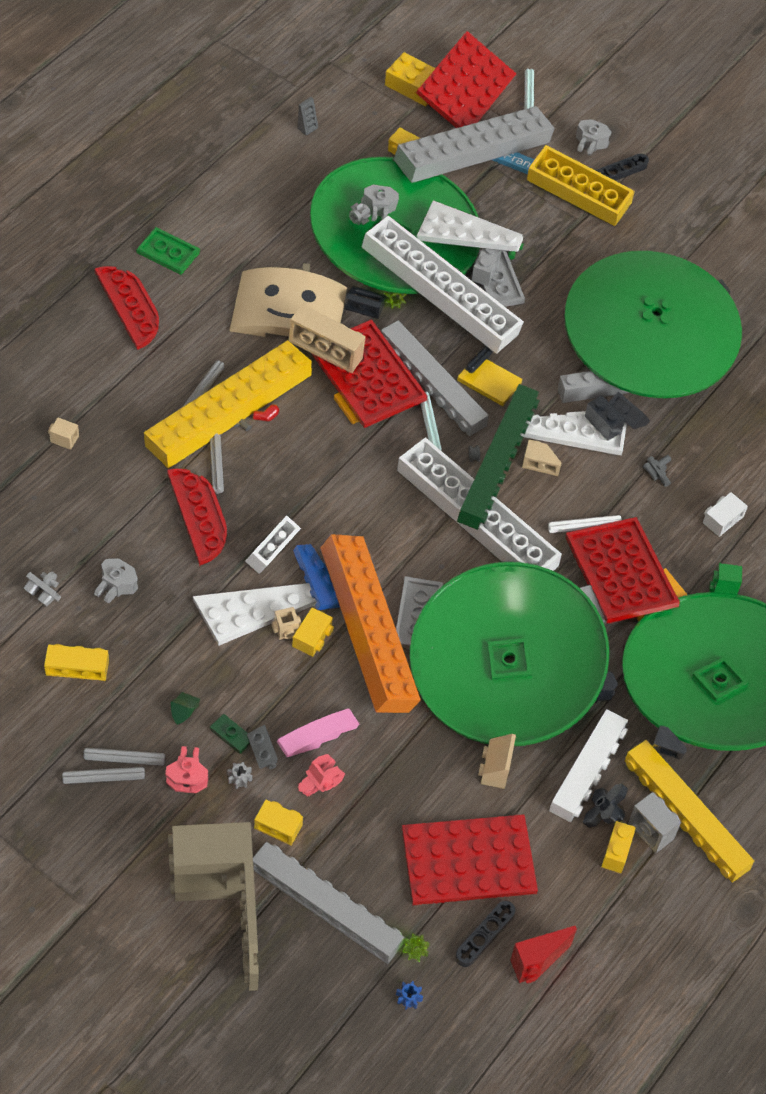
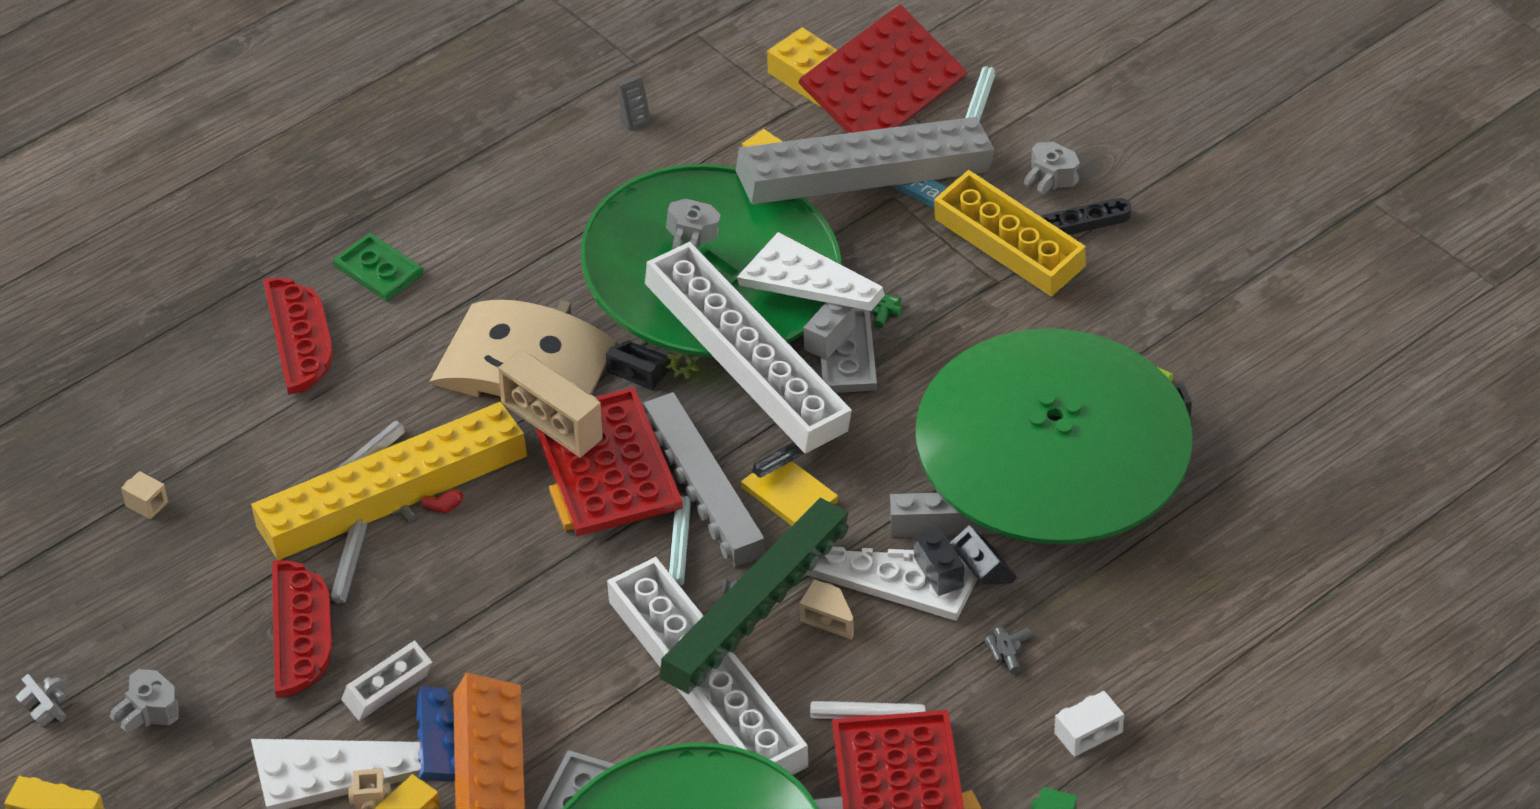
camera: 20 degrees right, 10 degrees down
(360, 213) = (657, 238): light grey gear -> none

